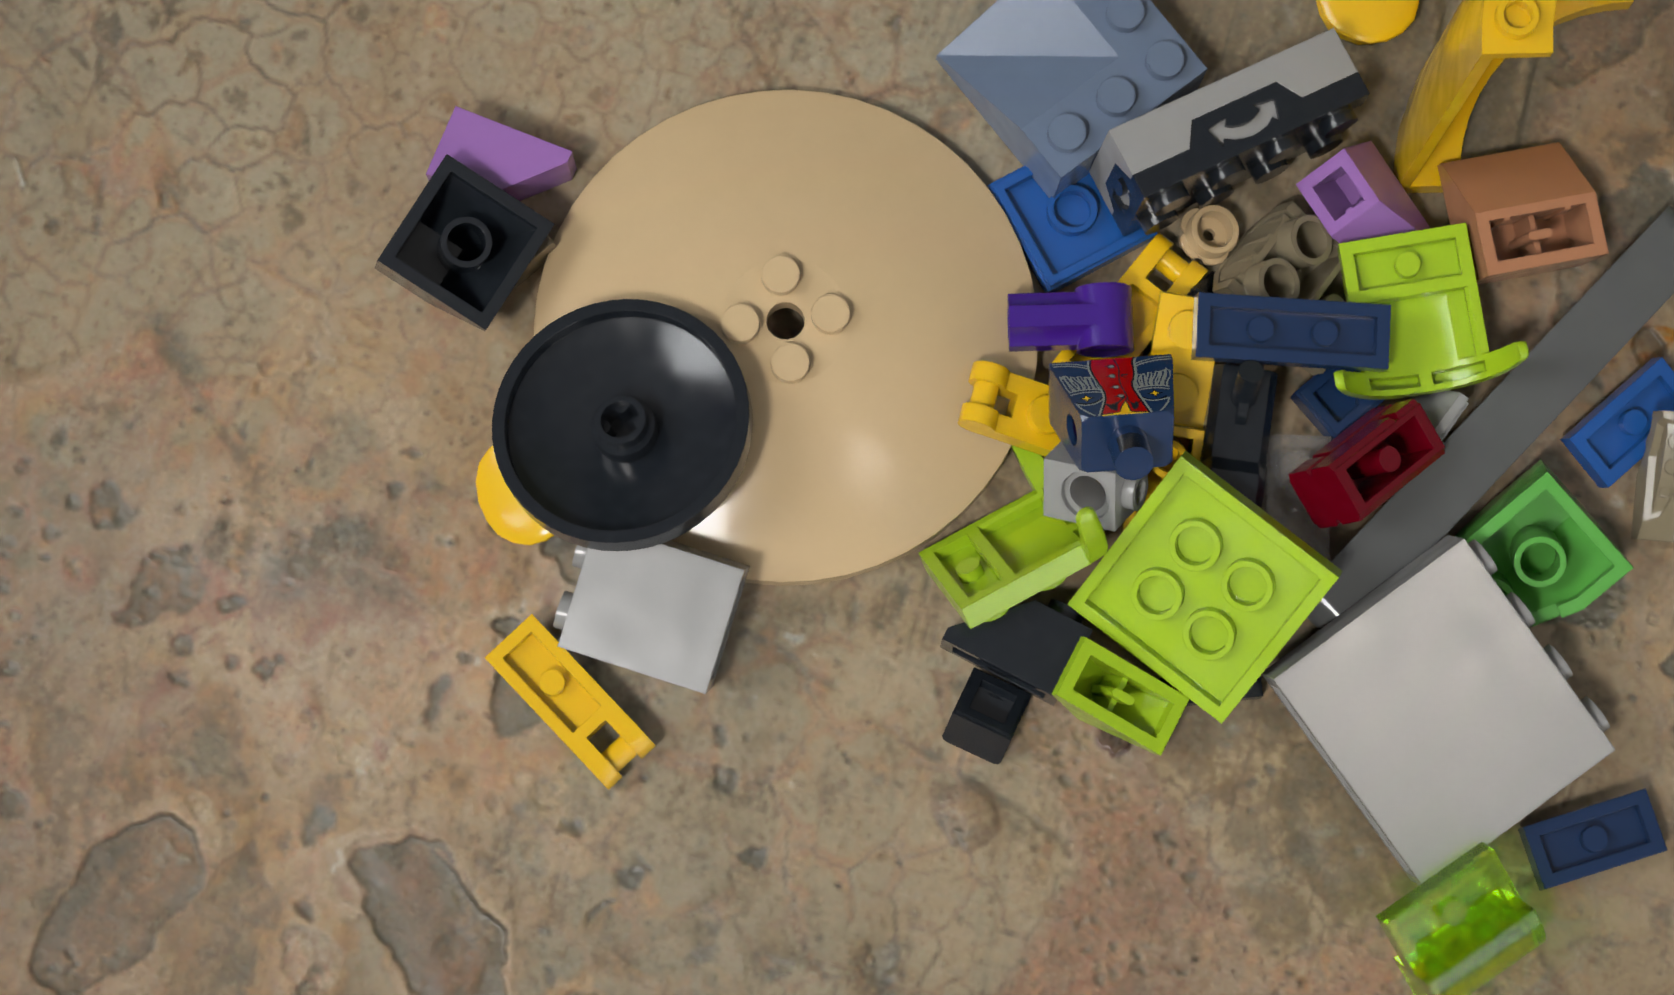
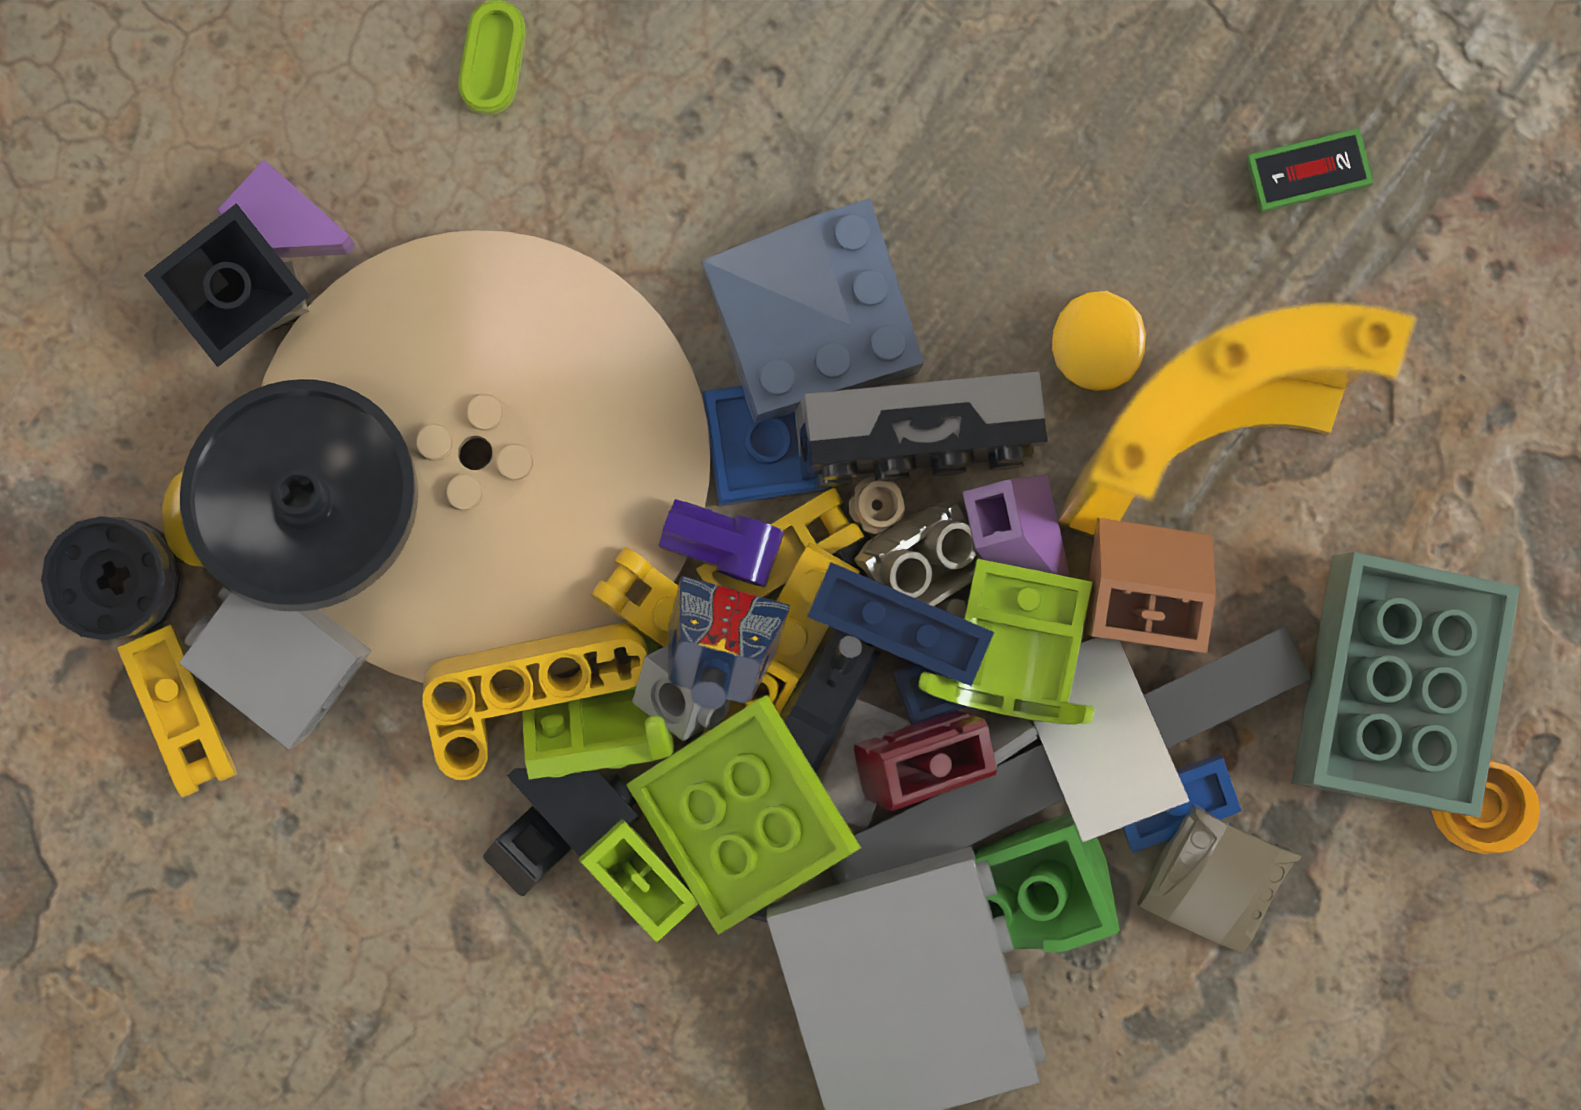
camera: 20 degrees right, 5 degrees up
(417, 583) = (83, 561): none -> black wheel
(936, 540) = (538, 689): none -> yellow beam
(1566, 394) = (1118, 762): none -> white sticker

